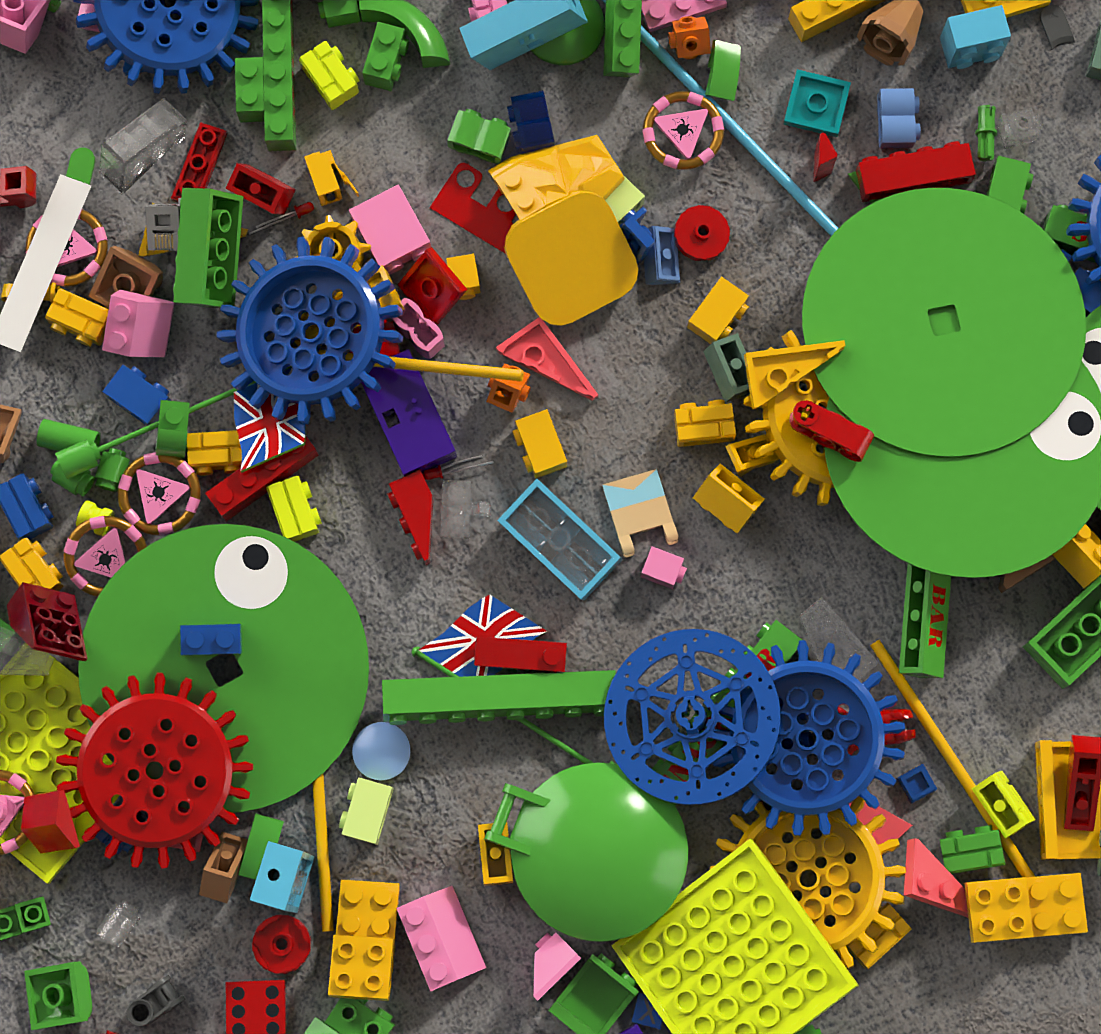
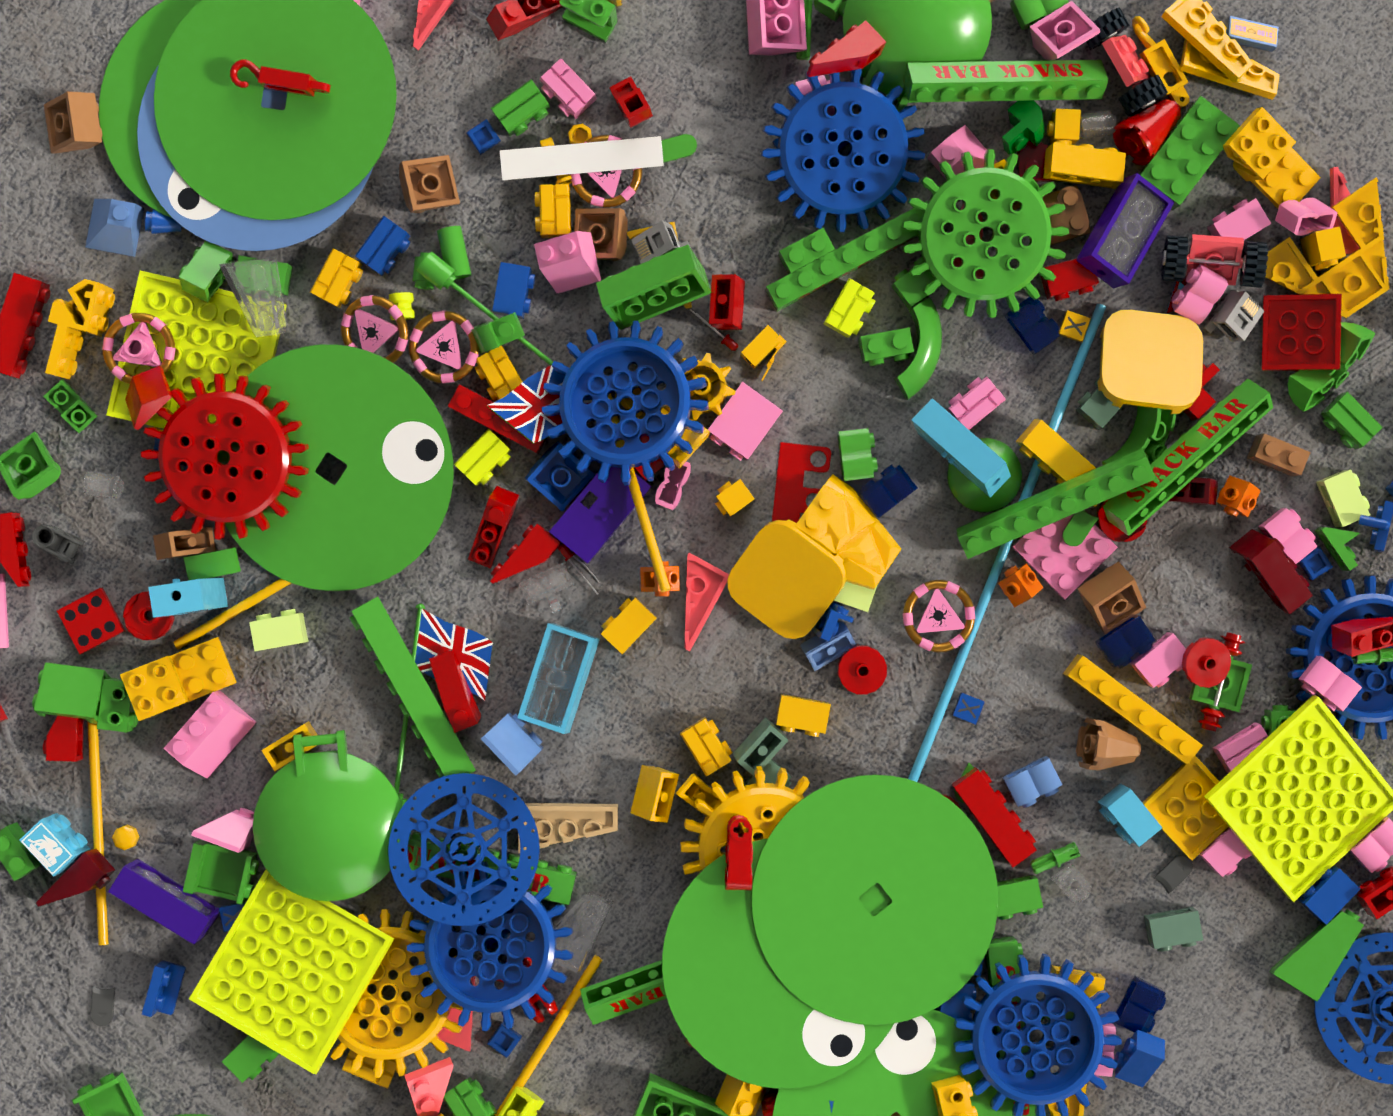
camera: 65 degrees right, 10 degrees up
(14, 256) = (579, 134): none -> yellow tile
(47, 621) = (295, 316): dark red slope -> none
(111, 469) = (445, 299): bright green brick -> none
(140, 145) = (718, 188): clear wedge -> none
(205, 149) = (742, 240): red tile -> none
(211, 639) = (343, 449): blue brick -> none
(350, 440) = (558, 477): none -> blue slope
(370, 534) = (493, 526): none -> red slope
(381, 751) = (330, 618): light blue dish -> none
(432, 286) = (712, 478): red tile -> none
(605, 616) = (513, 742): none -> medium blue slope
(639, 506) = (617, 724): tan flag -> none
(663, 568) = (576, 768): bright pink brick -> none
(718, 600) = (571, 821): none -> tan wing
(724, 70) = (1007, 624): bright green slope -> none
(777, 369) = (767, 787): yellow wing -> none
(791, 148) = (968, 708): none -> blue tile
(817, 103) = (1015, 711): teal plate -> none
(824, 158) = (968, 739): red slope -> none

